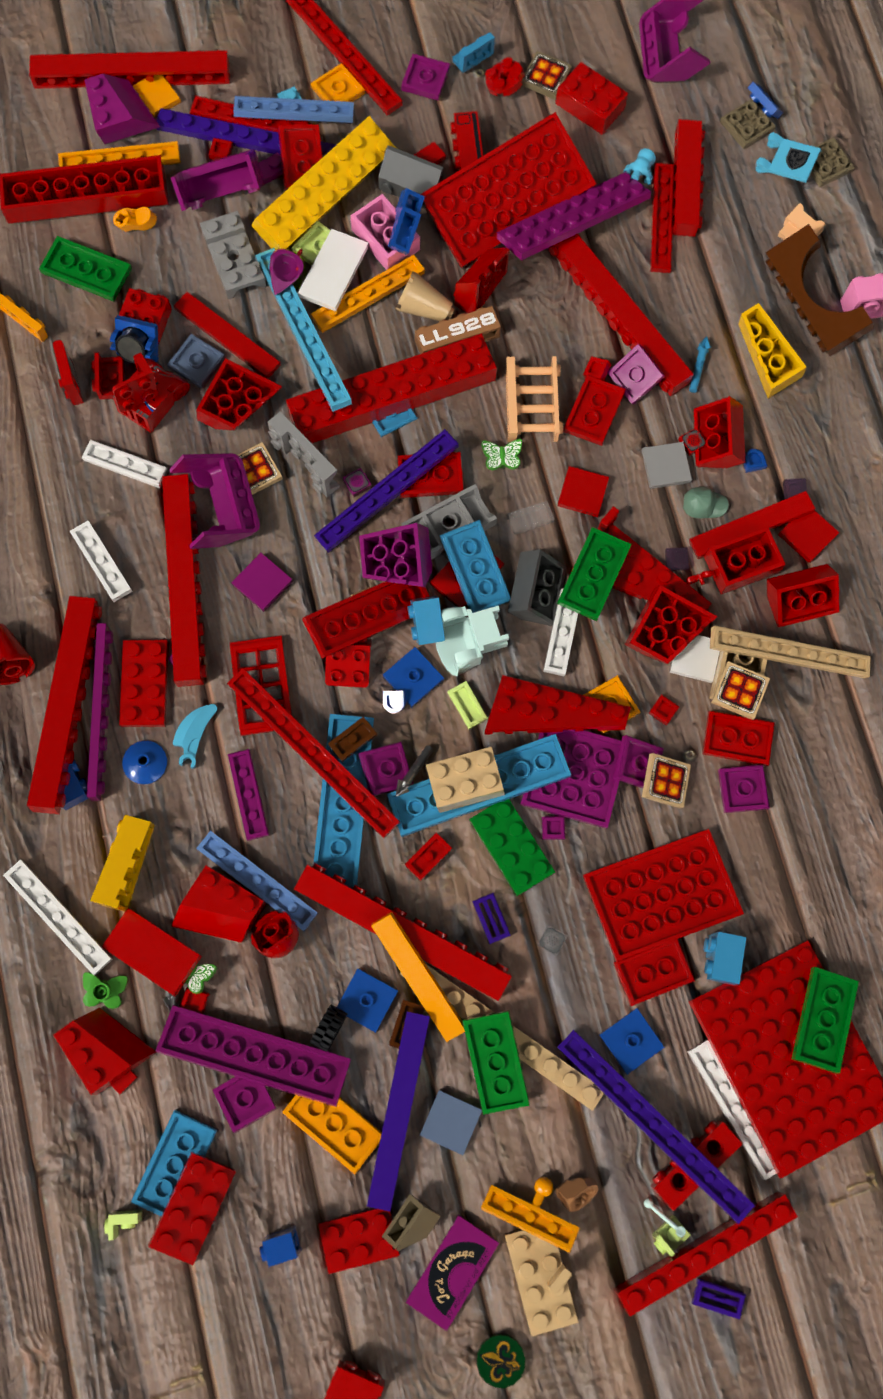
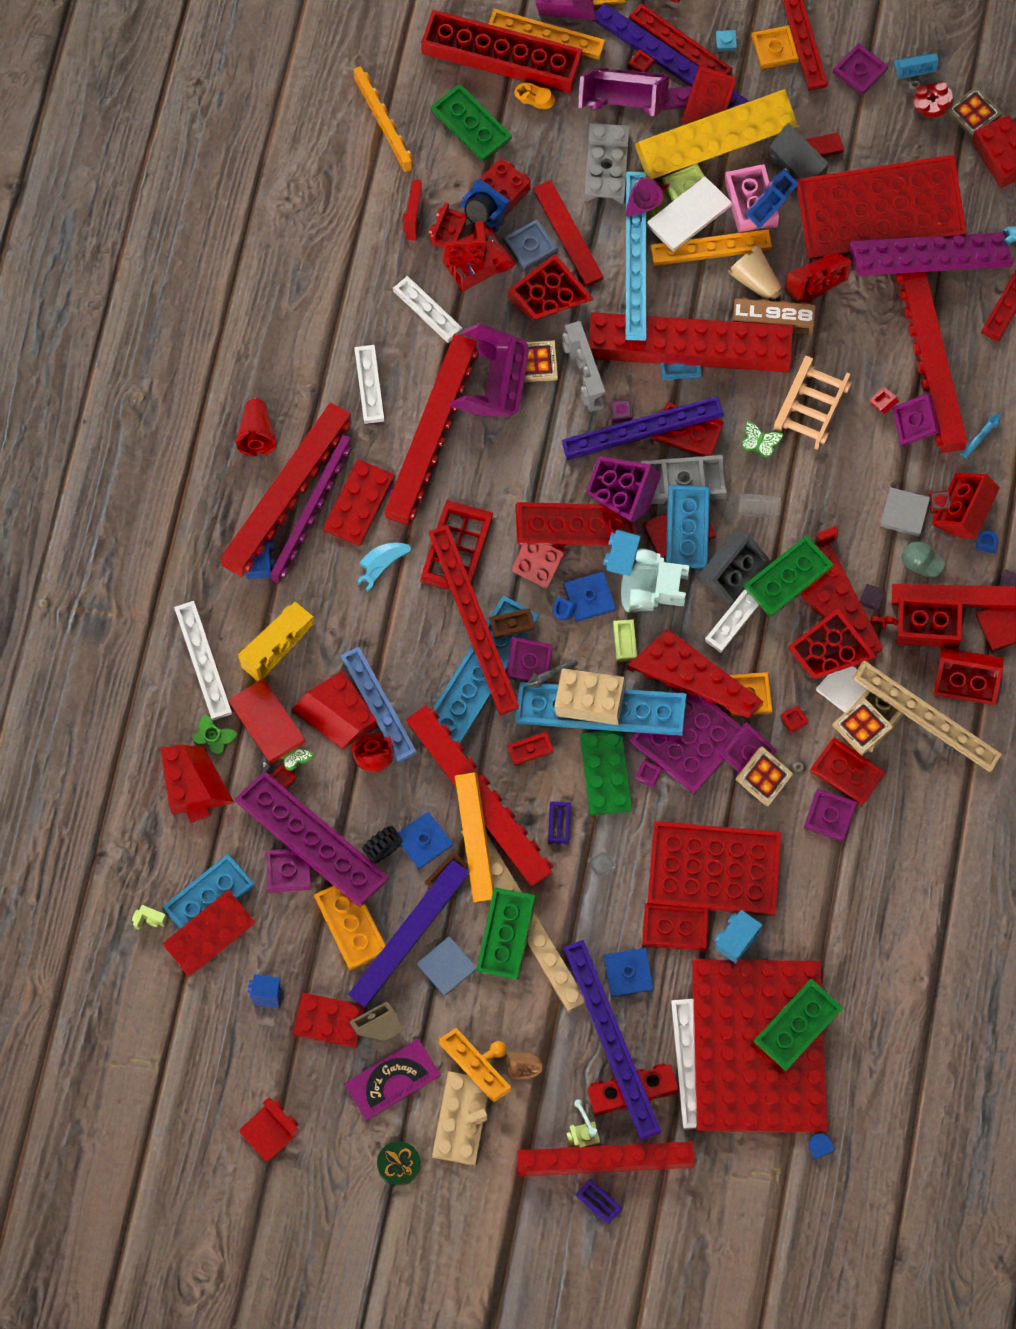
camera: 30 degrees right, 5 degrees down
(147, 772) = (332, 576): blue dish -> none
(248, 795) = (403, 632): magenta tile -> none
(262, 582) = (498, 460): magenta tile -> none
(293, 109) = (723, 53): medium blue plate -> none
(467, 138) = (869, 144): red brick -> none
(583, 491) = (817, 503): red tile -> none
(594, 410) = (863, 436): red plate -> none

